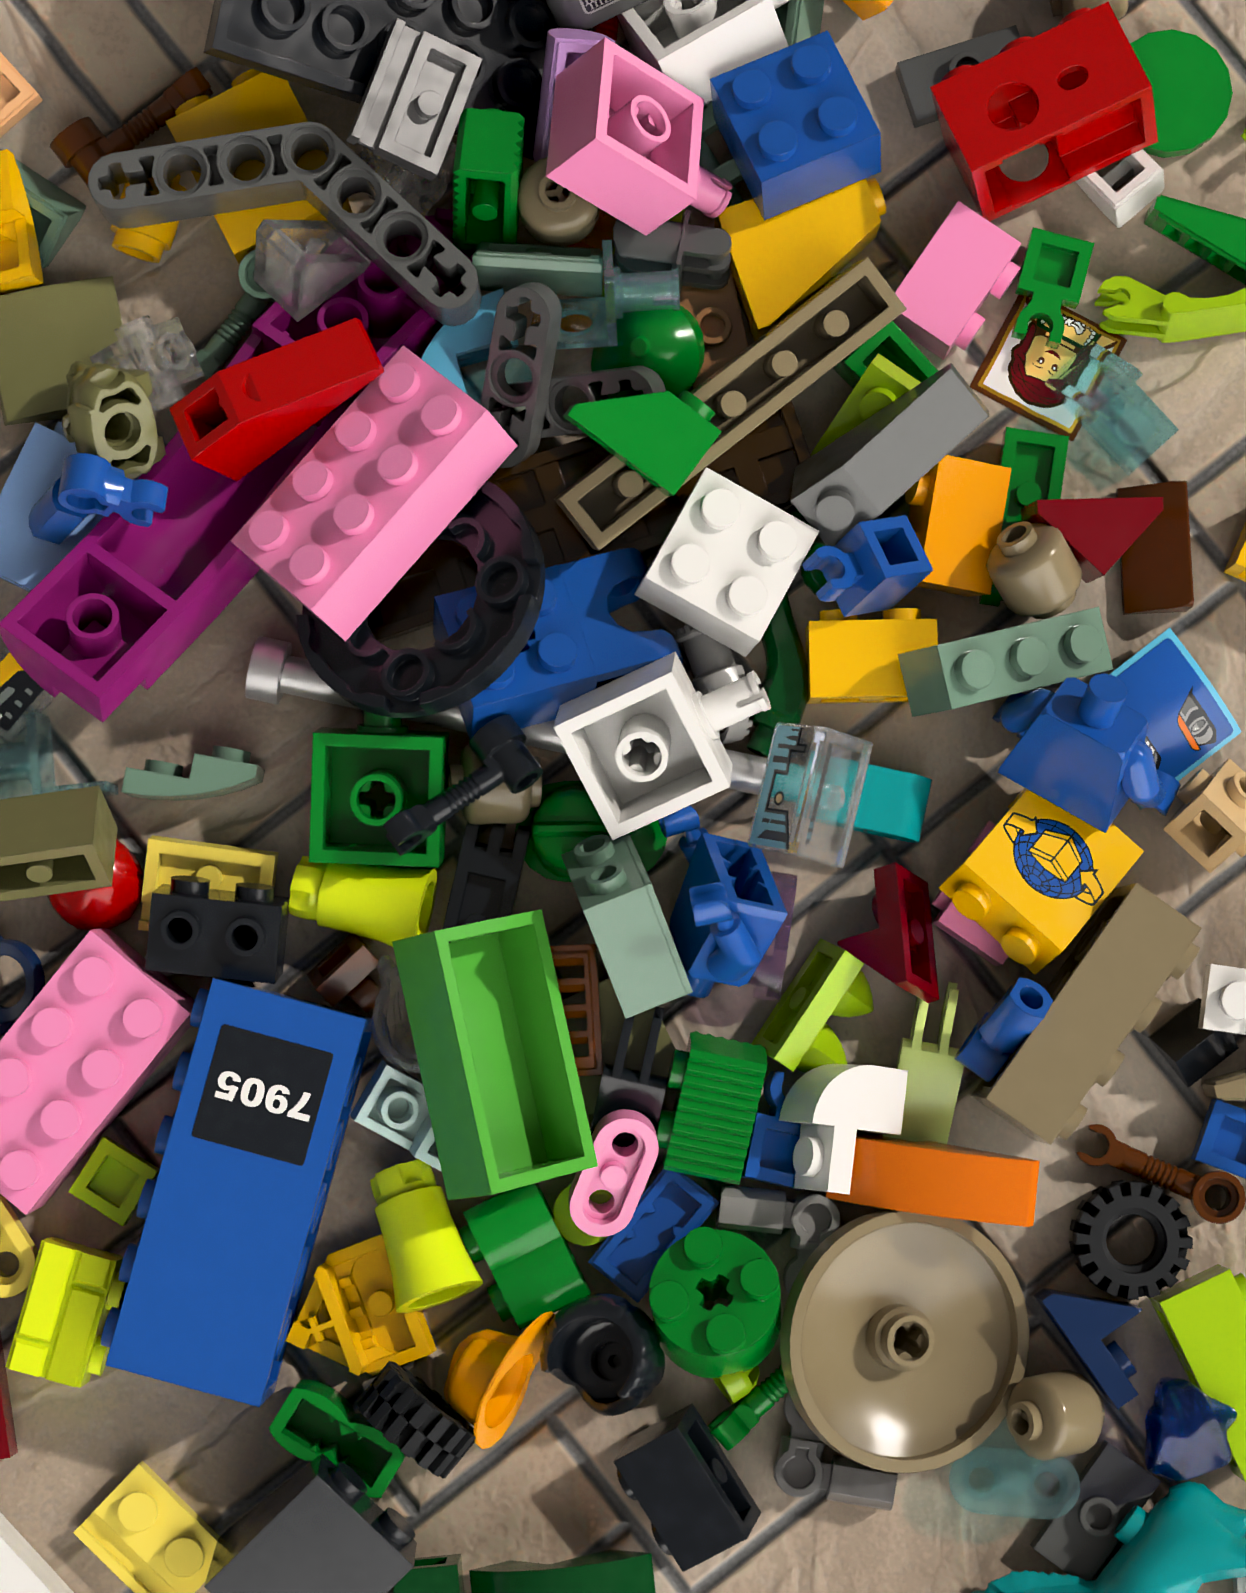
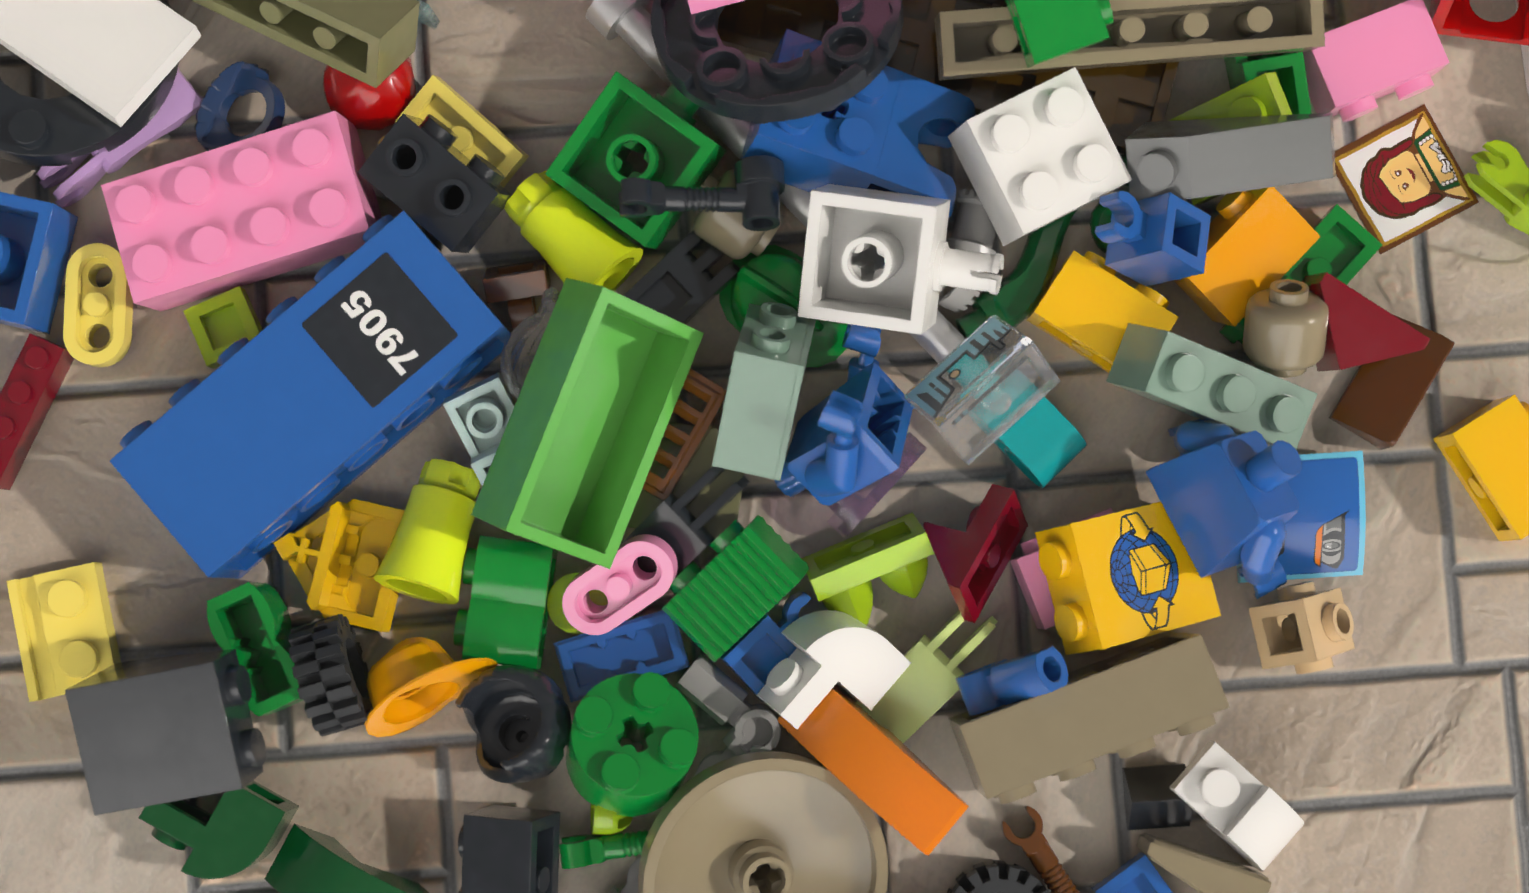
camera: 35 degrees right, 0 degrees up
(66, 1313) = (112, 400): neon yellow brick -> none
(210, 777) = (514, 59): sand green slope -> none
(1051, 277) = (1450, 111): green plate -> none
(1111, 406) = (1431, 245): clear light blue slope -> none

